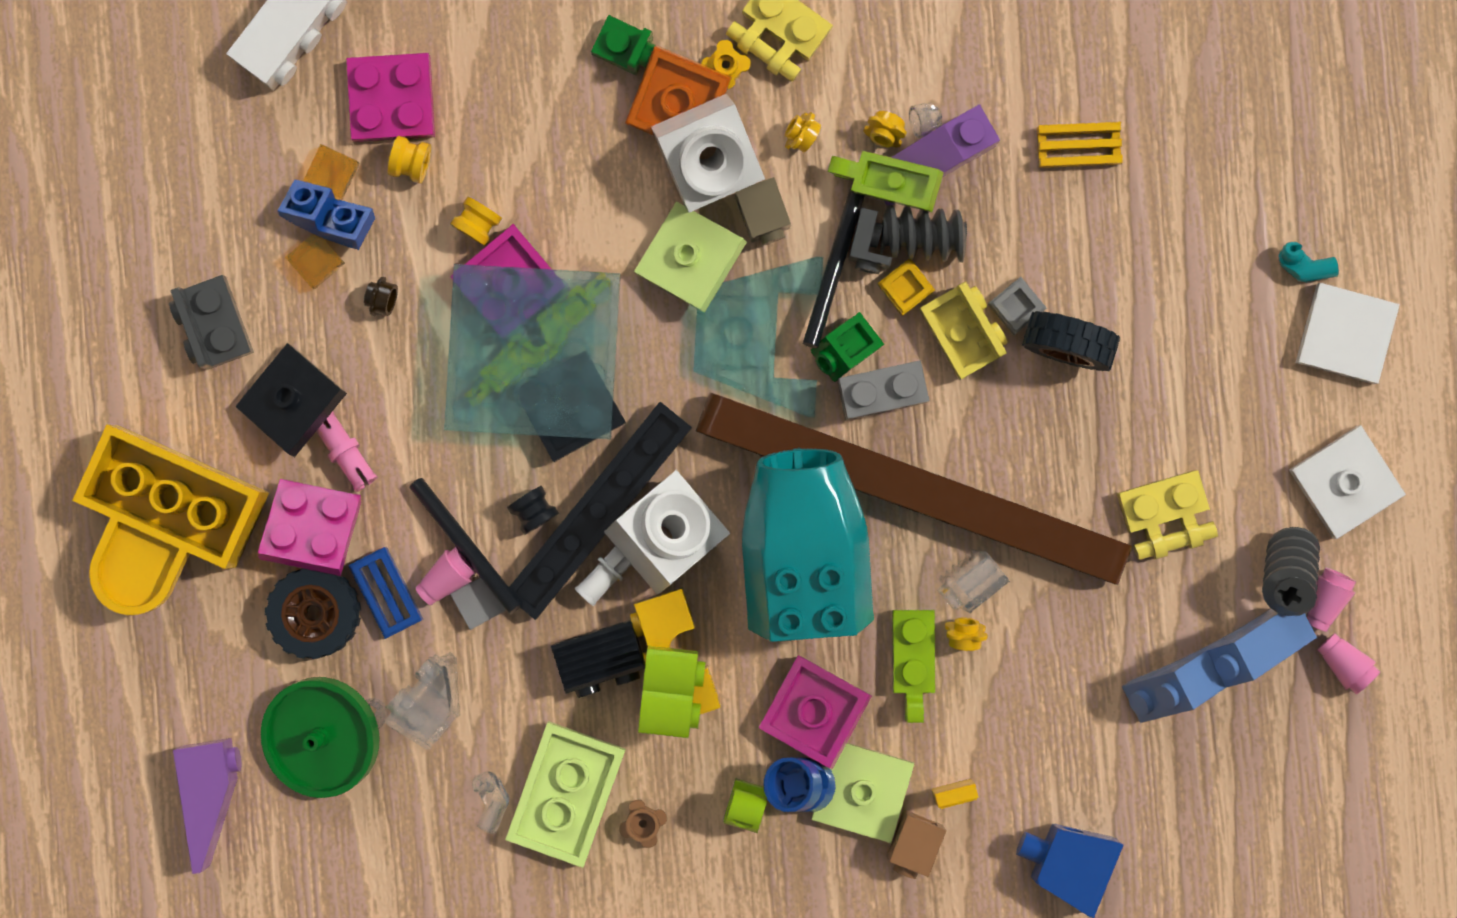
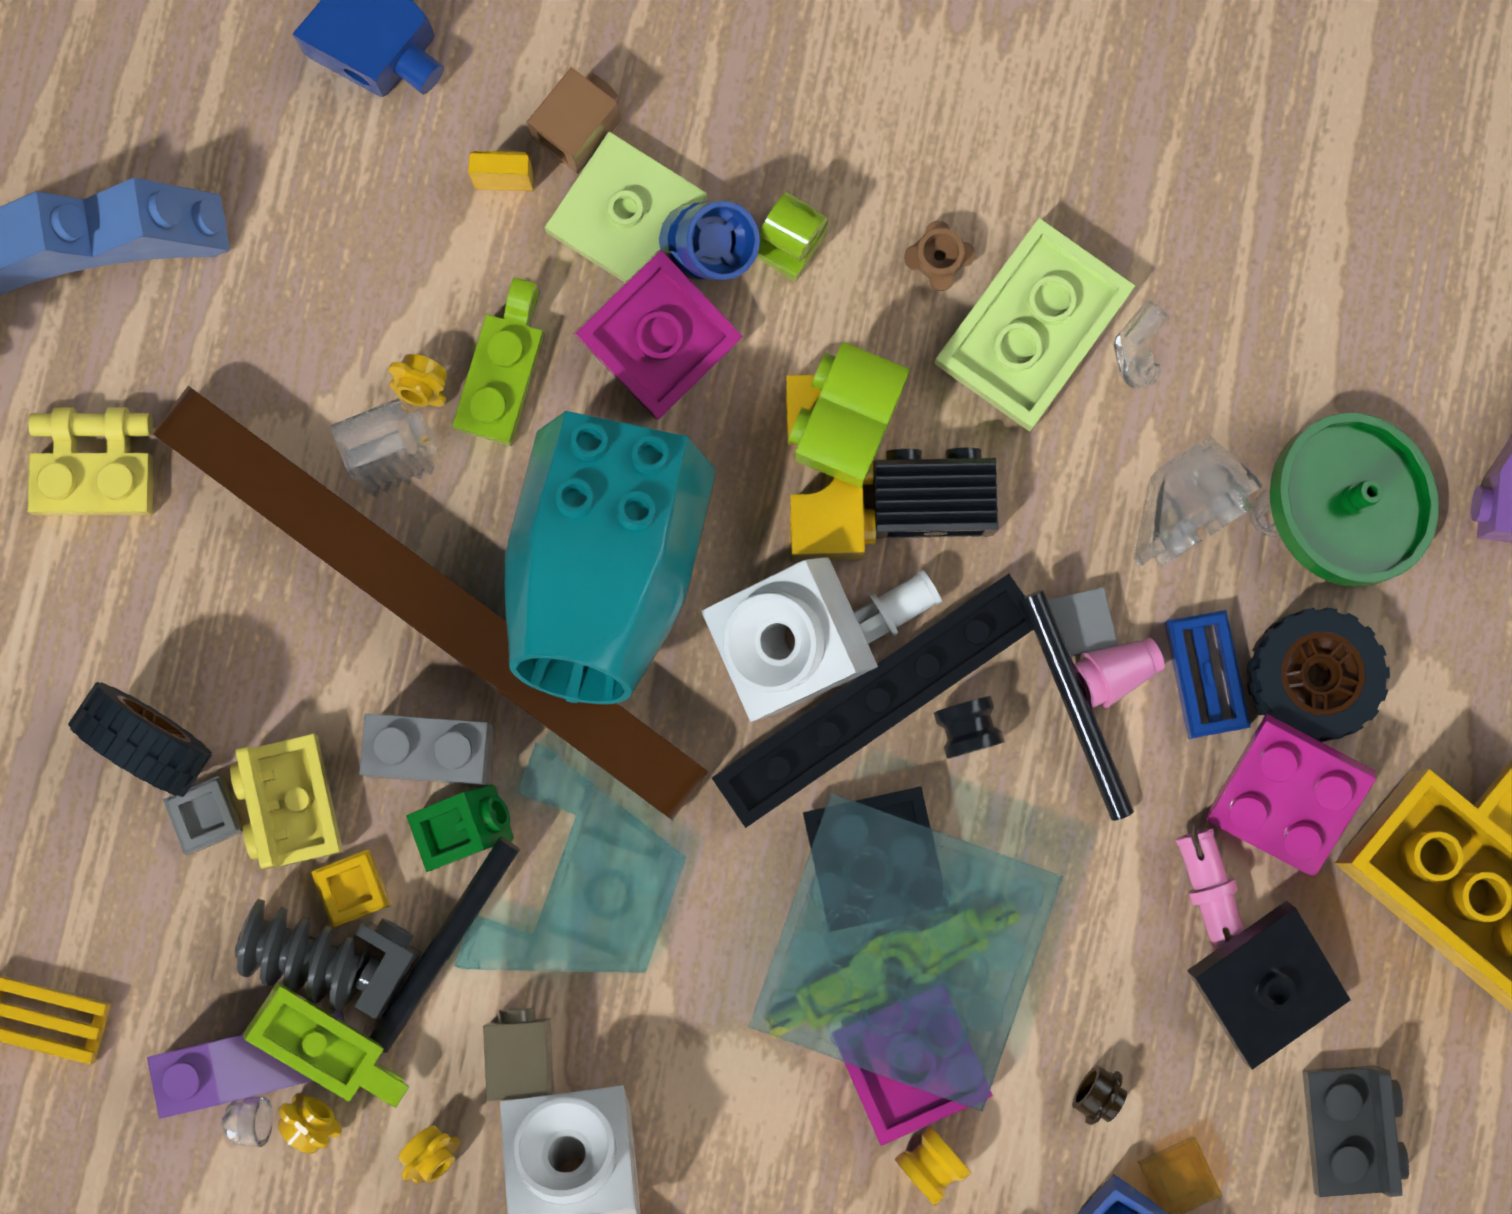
camera: 165 degrees left, 5 degrees down
(690, 257) = (641, 1022): yellowish green plate -> none

